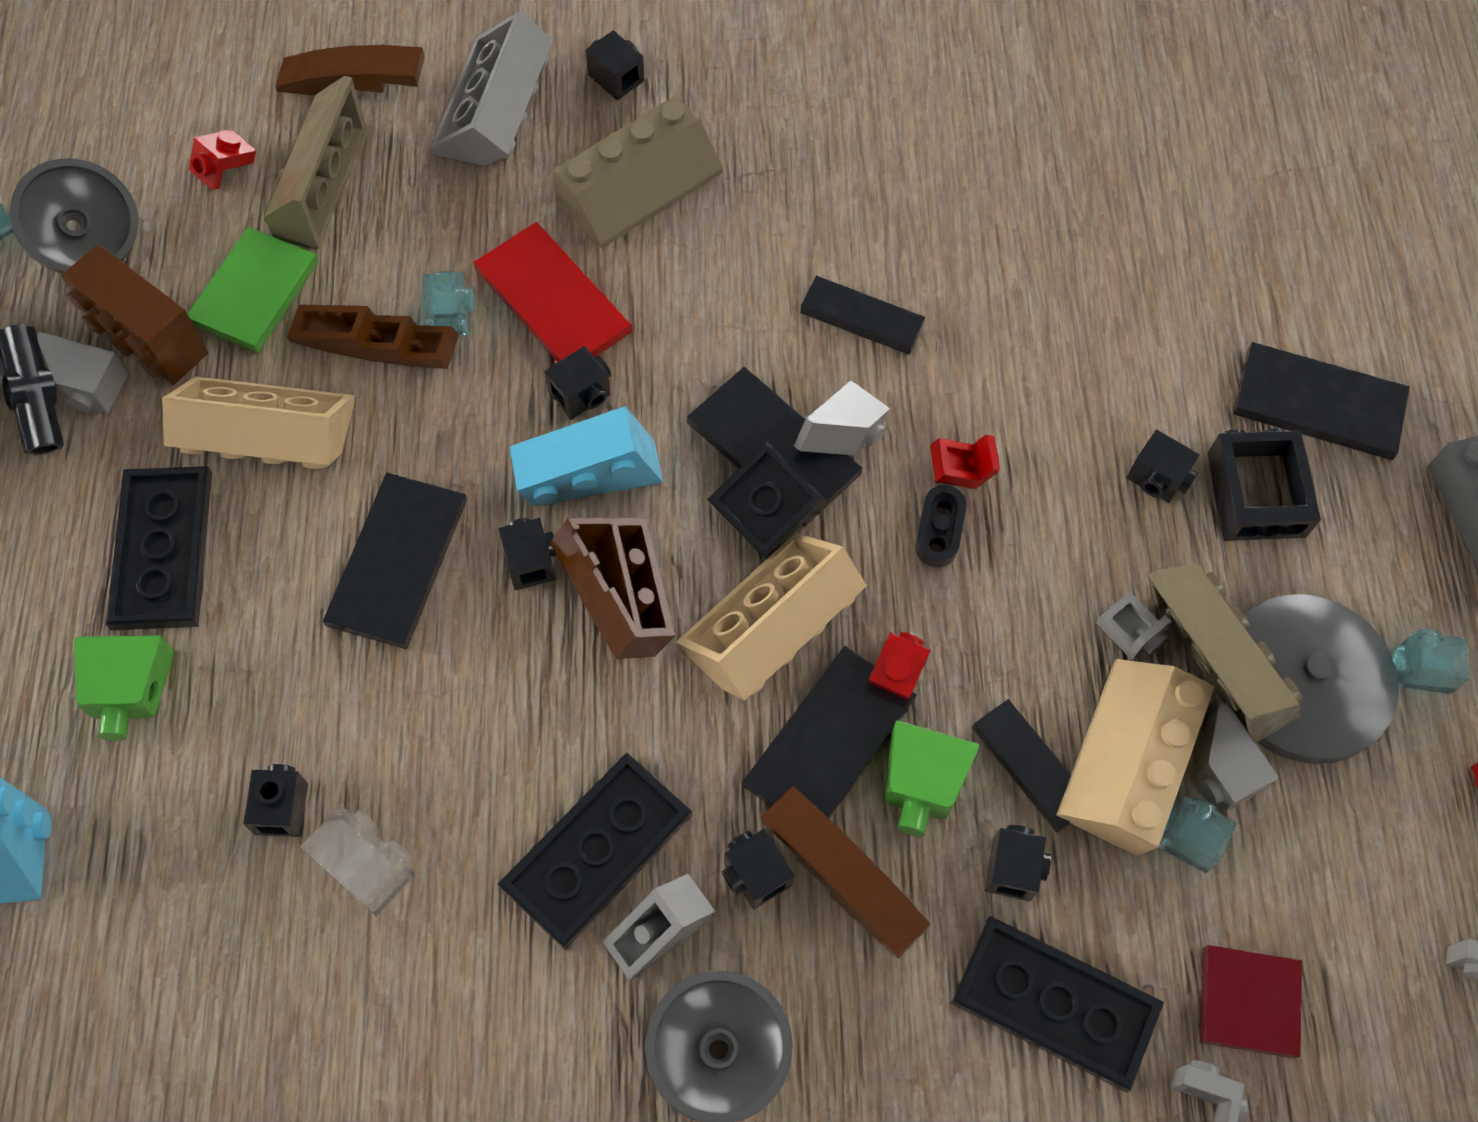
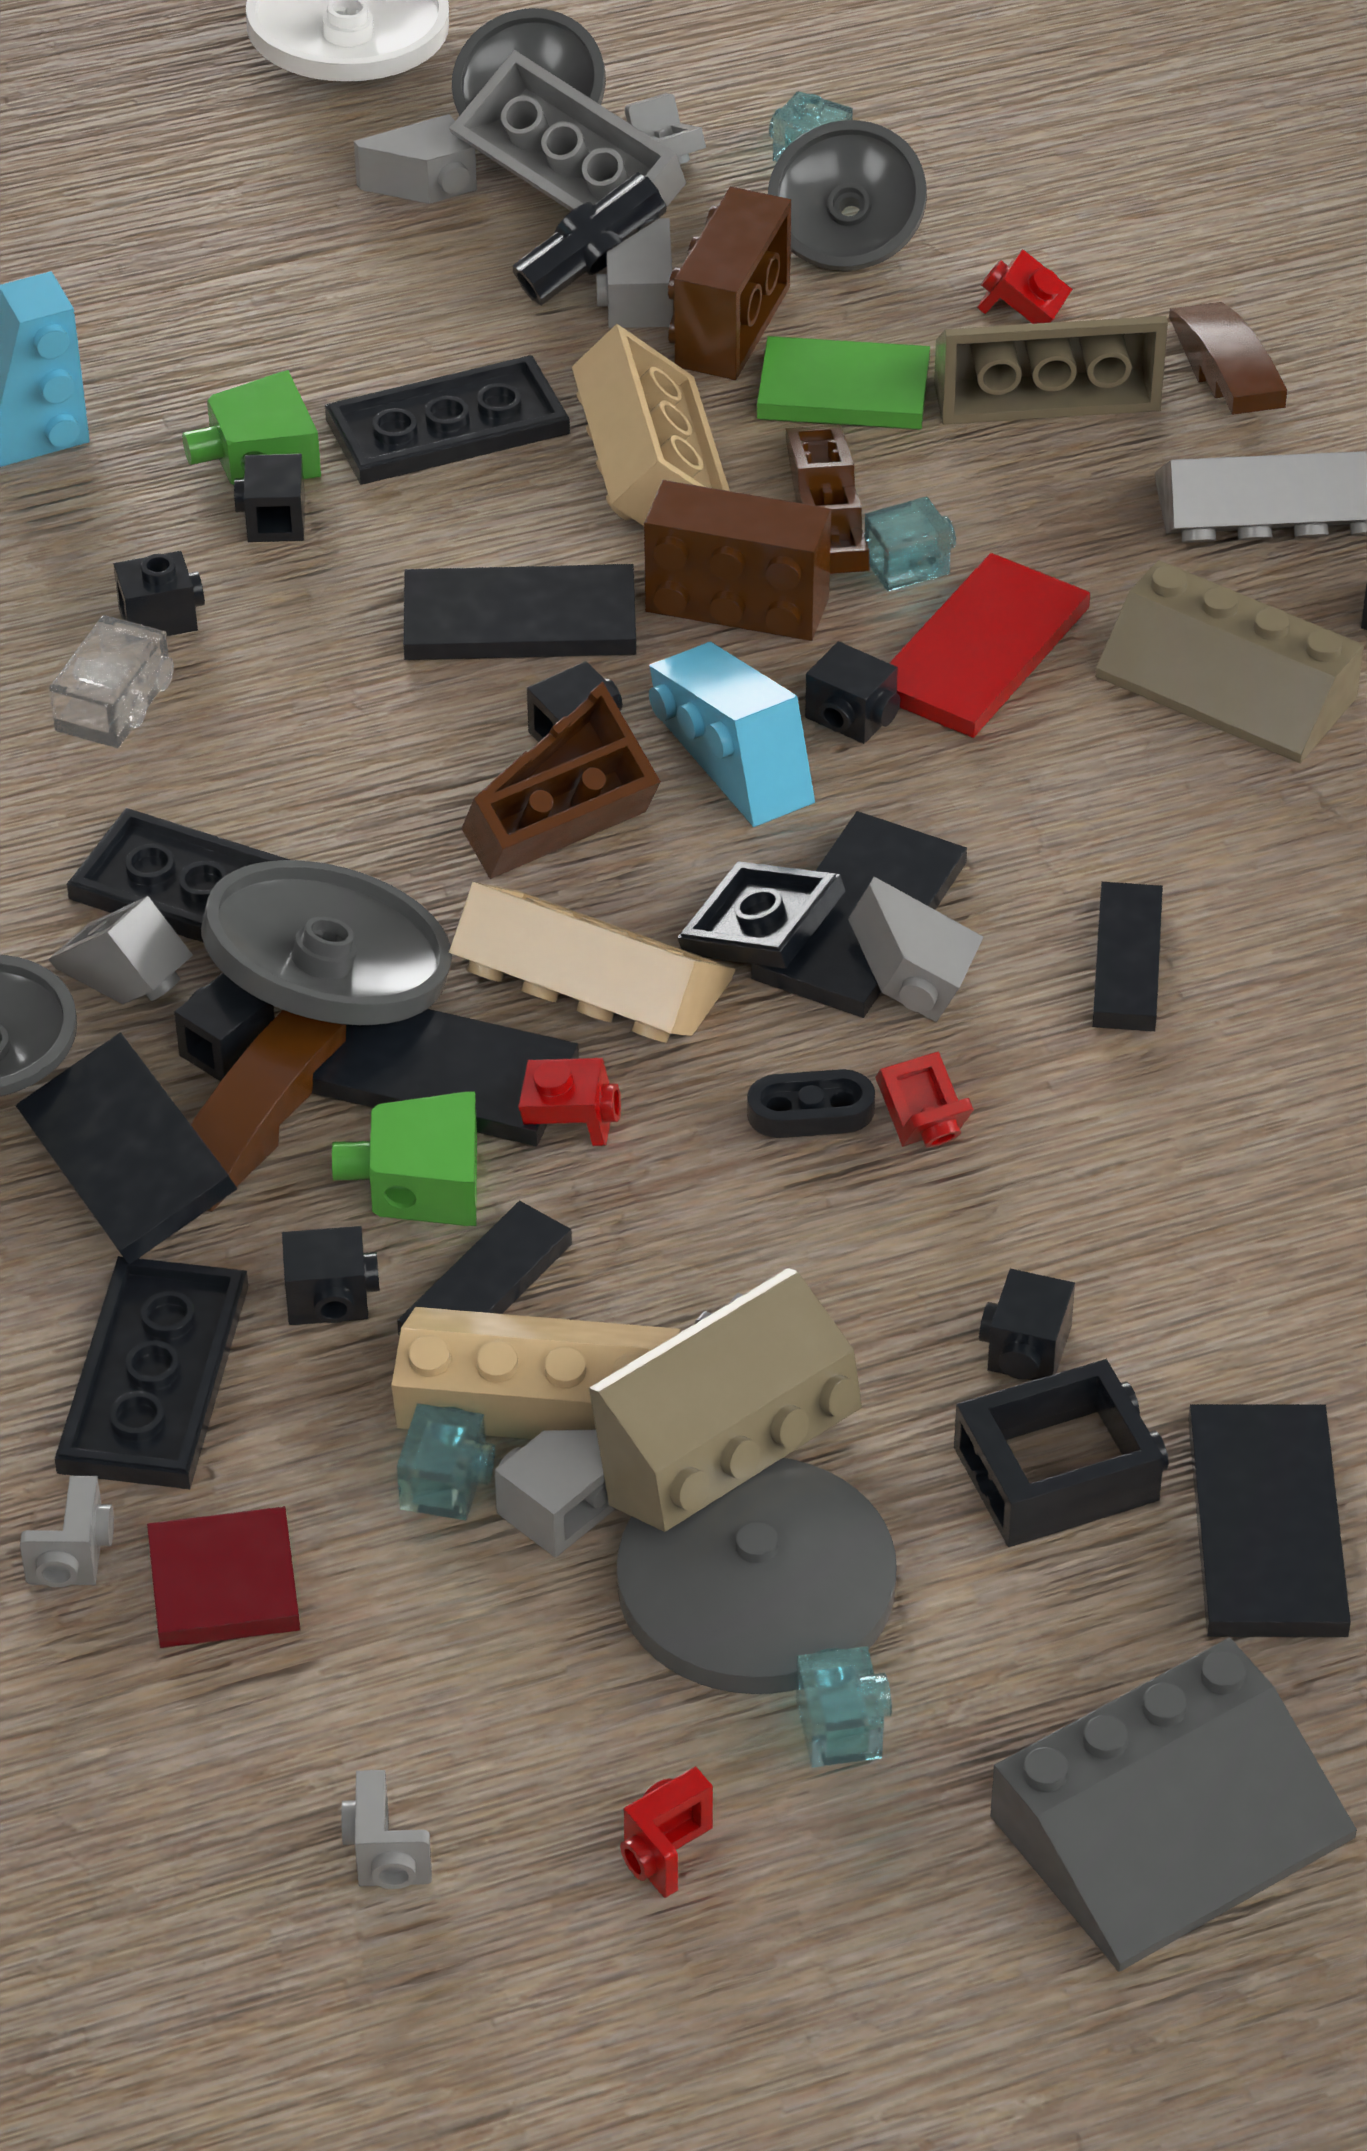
camera: 75 degrees right, 20 degrees down
(200, 688) = (272, 497): none -> black brick
(435, 404) = (737, 560): none -> reddish brown brick
(720, 779) = (326, 942): none -> dark grey dish
(867, 969) = (126, 1148): none -> black tile

